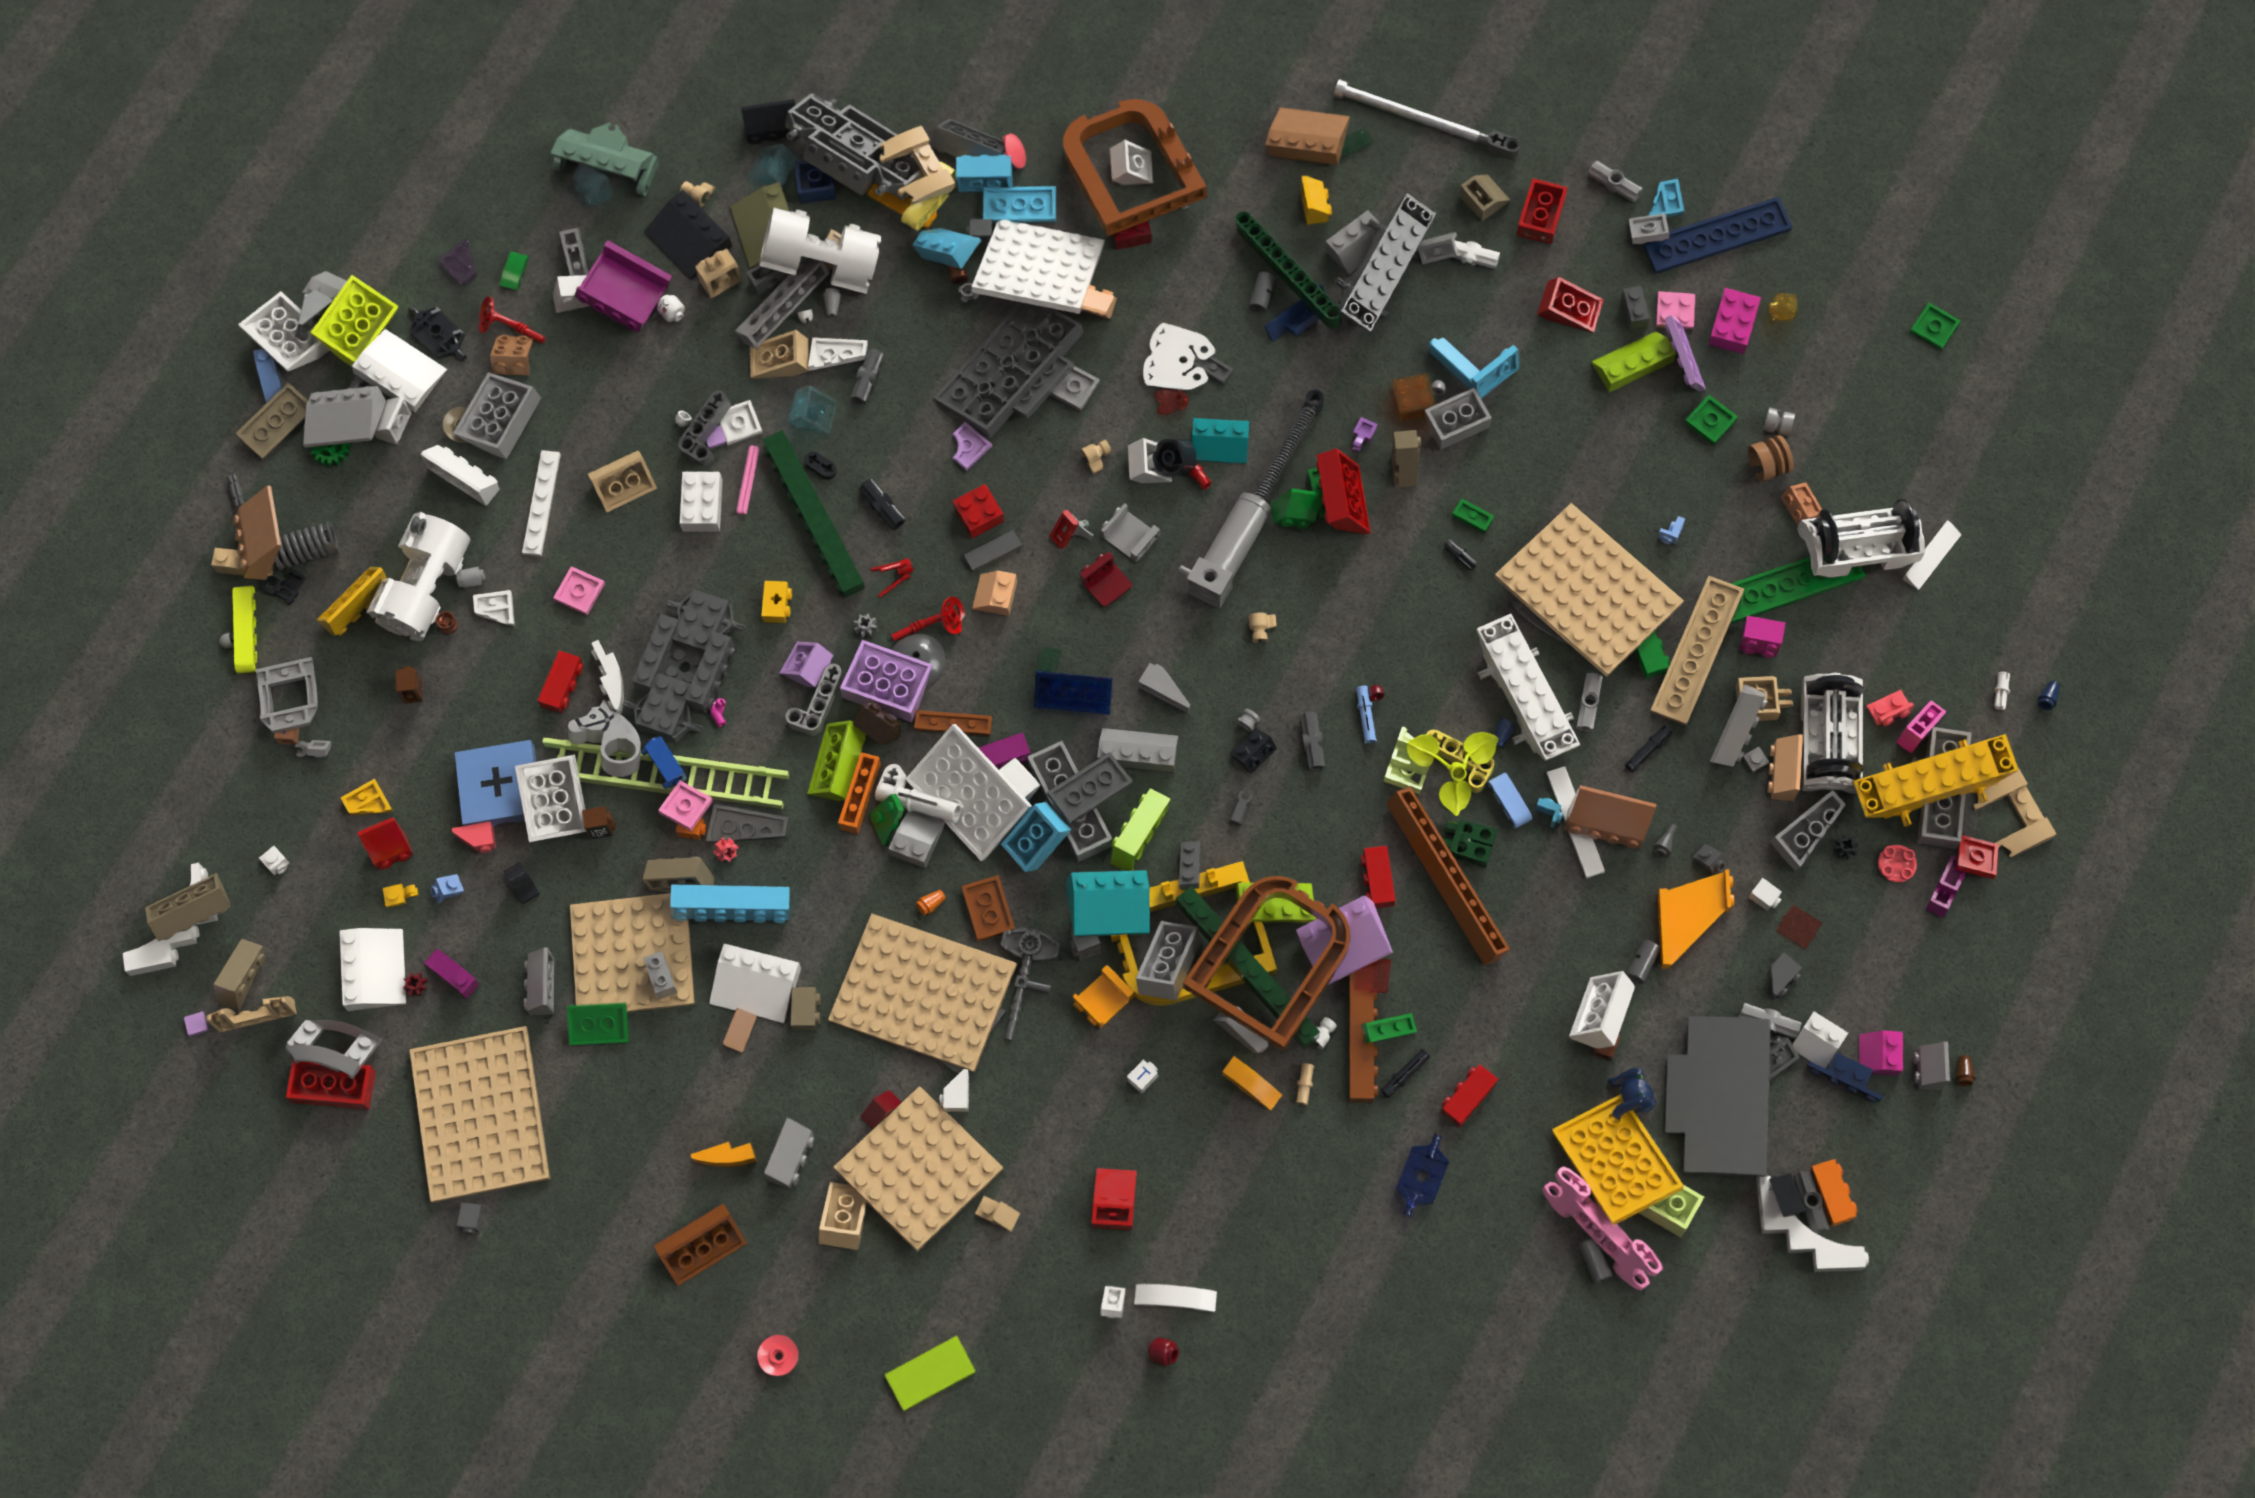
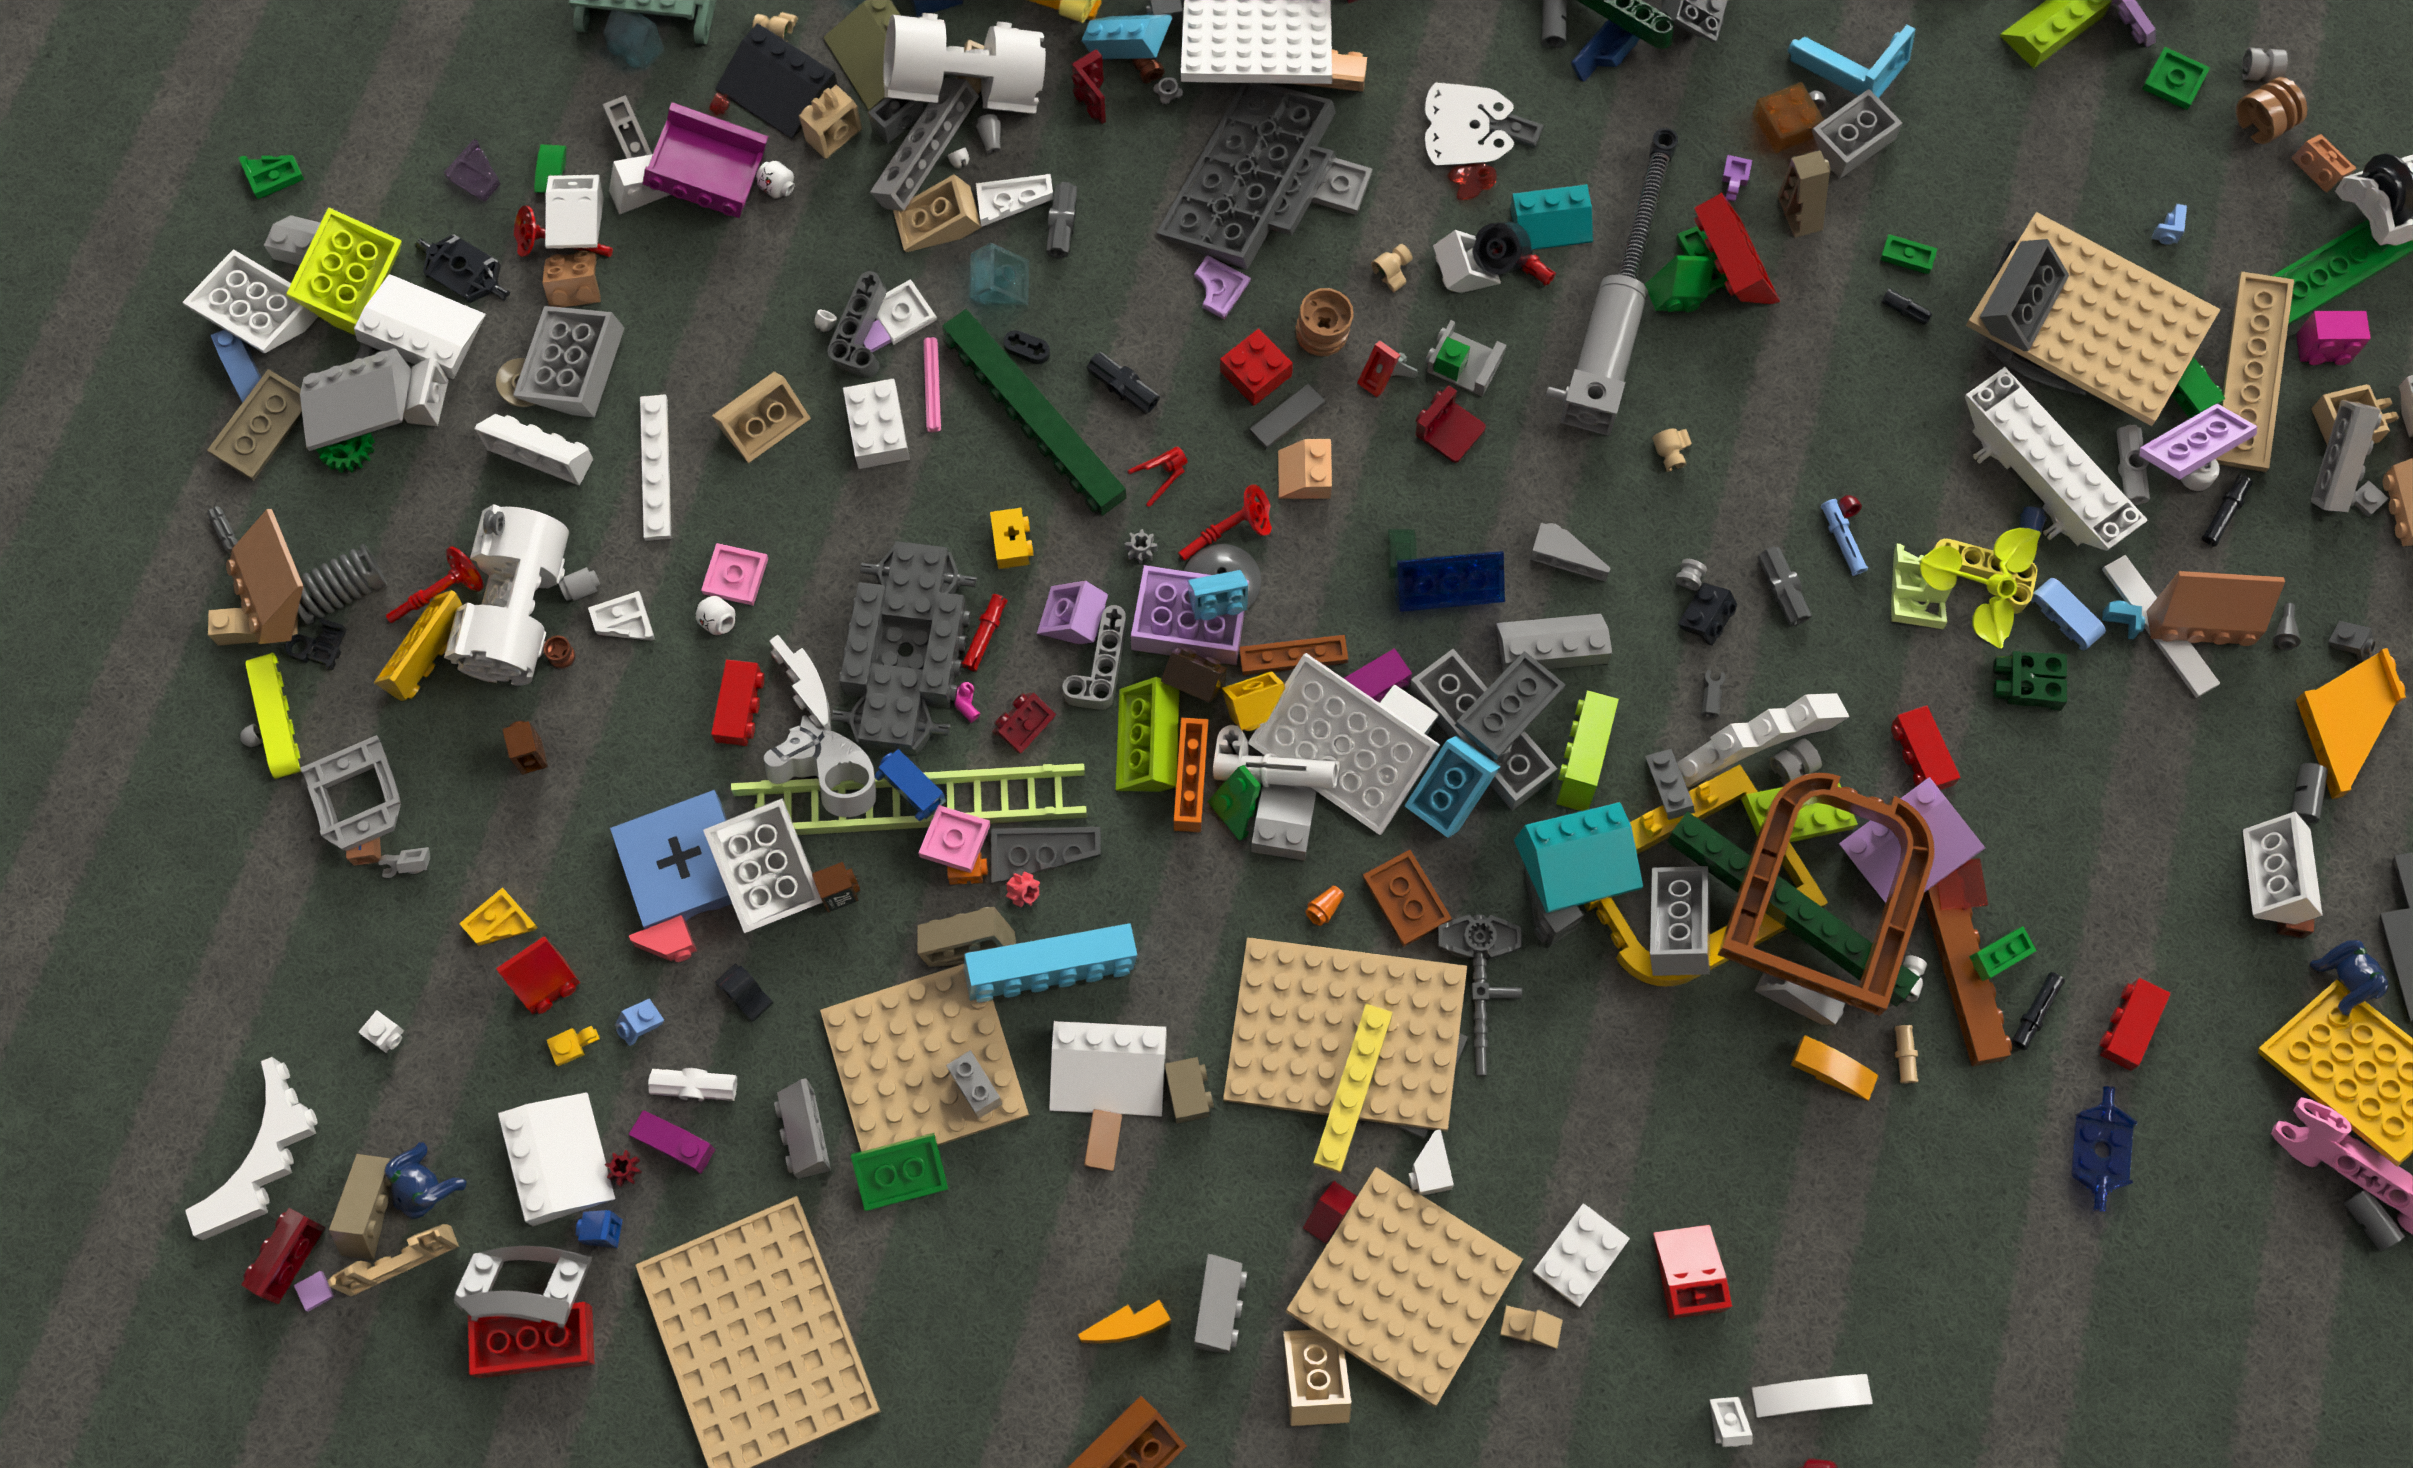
camera: 15 degrees left, 0 degrees up
(180, 996) = (282, 1256): none -> dark red slope
(187, 907) = (268, 1125): dark tan slope -> none
(275, 968) = (416, 1187): none -> dark blue hair
(312, 310) = (282, 265): slope -> none
(318, 237) = (271, 173): none -> green wing
(389, 554) = (458, 573): none -> red dish
(391, 1020) = (599, 1228): none -> blue slope
(473, 937) = (692, 1084): none -> white piece
(522, 306) = (573, 211): none -> white slope
(559, 617) = (715, 615): none -> white head
(644, 243) = (719, 104): none -> clear red plate
(746, 659) = (987, 625): none -> red pin
(754, 734) = (1023, 721): none -> dark red bracket
(906, 671) = (1218, 595): none -> medium azure slope
(910, 272) = (1087, 80): none -> dark red bracket
(914, 749) = (1253, 700): none -> yellow slope
(915, 1029) = (1353, 1088): none -> light yellow plate
(1037, 478) = (1320, 310): none -> medium nougat wheel
(1043, 1173) = (1581, 1255): none -> white plate
(1103, 997) = (1598, 989): light orange panel -> none
(1118, 531) = (1451, 359): none -> green brick
(1143, 1076) = (1683, 1088): white brick -> none
(1266, 840) = (1740, 740): none -> white arch
(1285, 867) = (1796, 762): none -> light grey wheel
(1447, 876) = (2019, 731): dark orange brick -> none
(1538, 563) = (2025, 294): none -> dark grey slope
(1635, 694) = (2198, 441): none -> lavender plate
(1635, 716) = (2202, 477): none -> white head

